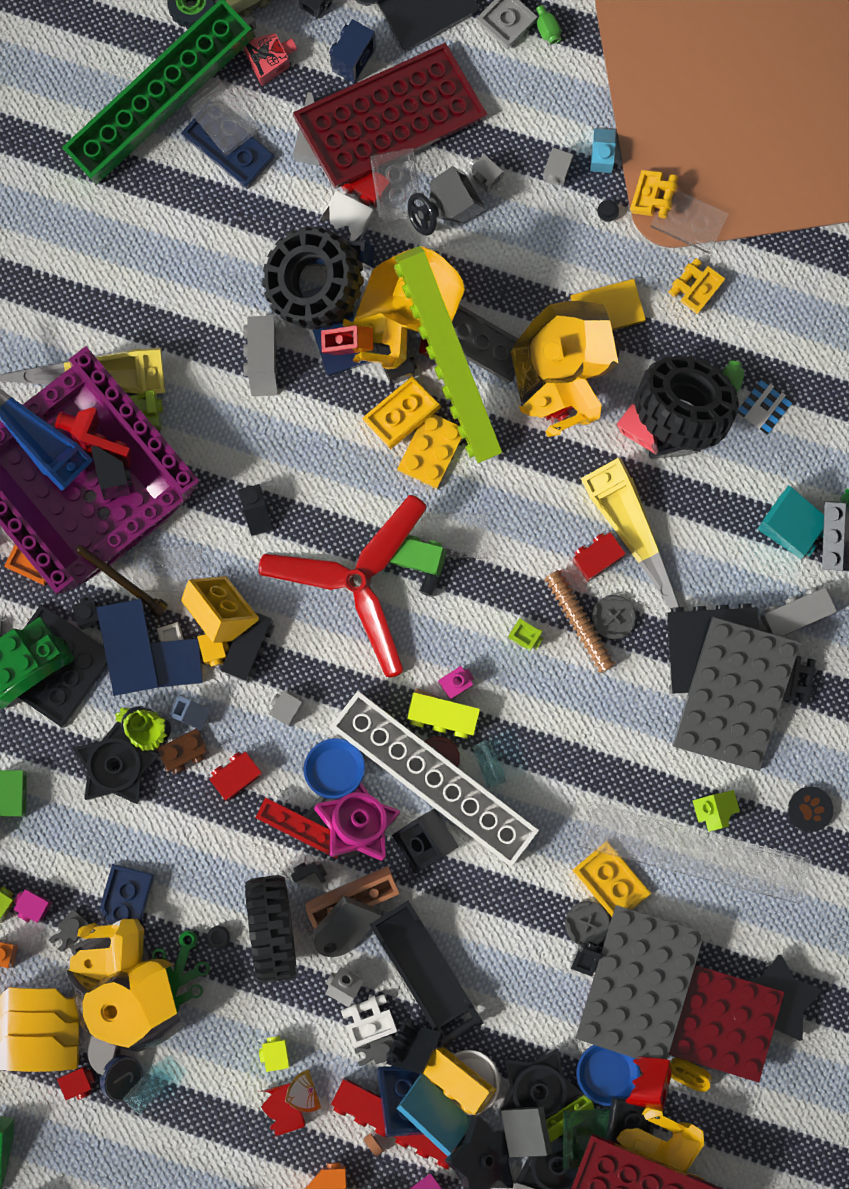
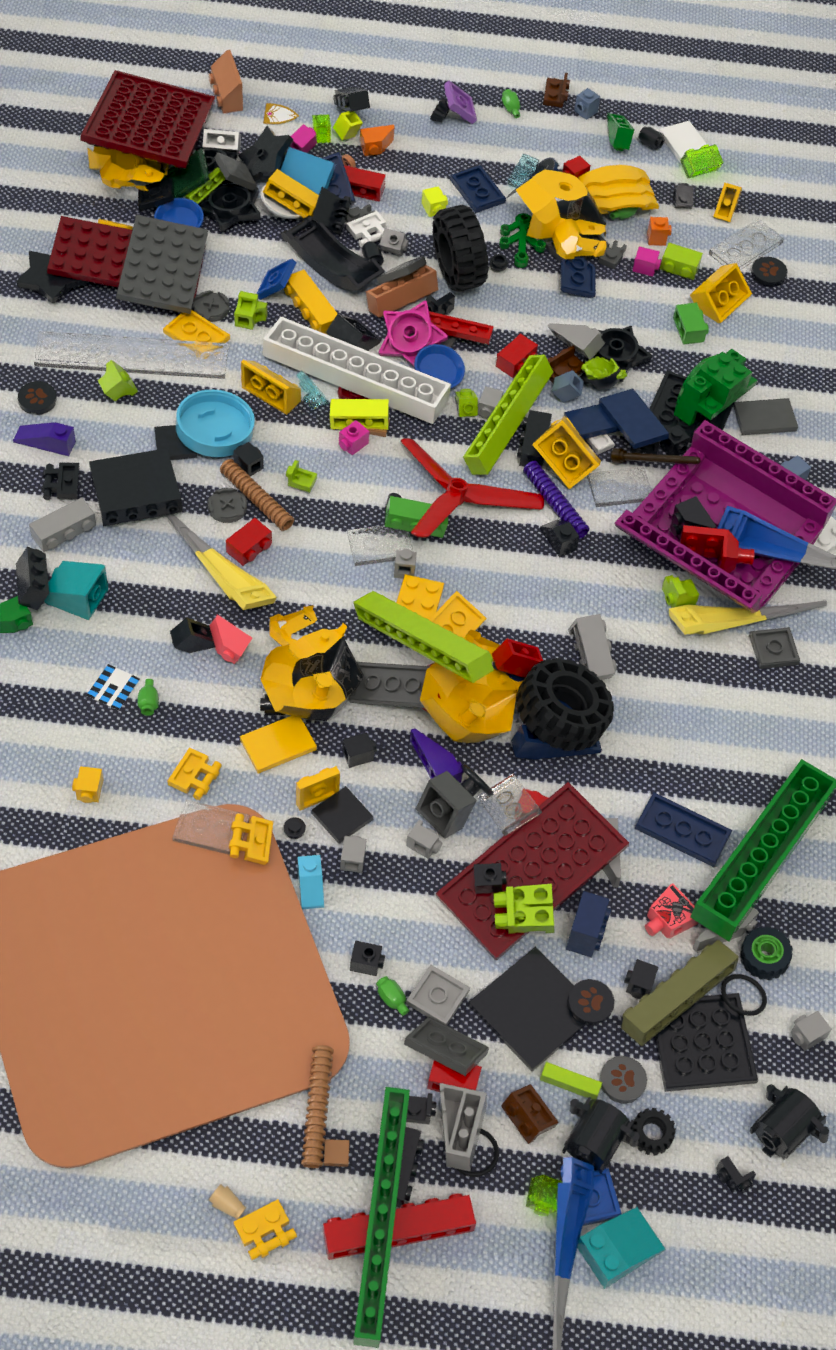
camera: 160 degrees right, 25 degrees down
(65, 331) = (774, 648): none -> dark grey tile
(155, 776) = (584, 339): none -> light grey slope
(211, 1077) = (477, 189): none -> dark blue tile
(222, 117) = (696, 846): clear tile -> none
(246, 558) = (555, 498): none -> dark purple piece
(269, 682) = (508, 415): none -> lime brick
(276, 1108) = (418, 173): red piece -> none
(302, 1093) = (407, 182): sticker -> none
(312, 718) = (467, 402): none -> lime bracket
(348, 212) = (547, 778): white piece -> none
(374, 972) = (372, 250): none -> black brick
(408, 68) = (527, 909): none -> lime hips
(435, 497) = (406, 559): none -> light grey brick
(436, 106) = (489, 878): none -> black brick
(450, 246) = (434, 757): none -> dark purple slope
(465, 901) = (310, 301): none -> yellow brick
(503, 942) = (276, 278): none -> blue tile
(529, 281) = (358, 750): none -> black brick
(537, 773) = (269, 386): none -> yellow slope
(545, 898) = (249, 310): none -> lime brick
(558, 218) = (342, 814): none -> black tile
(565, 63) = (367, 958): none -> black brick
(581, 673) = (248, 458): none -> black brick
(586, 235) = (317, 788): none -> yellow plate
(586, 958) = (207, 281): black bracket -> none
(611, 728) = (214, 422): none -> medium azure piece
(653, 1085) = (145, 199): red piece -> none
(658, 715) = (167, 438): none -> black tile
(679, 422) = (158, 649): black tyre -> none
(736, 693) = (111, 453): dark grey plate -> none
(803, 289) = (88, 784): none -> yellow brick
(807, 744) = (48, 437): none -> dark purple slope

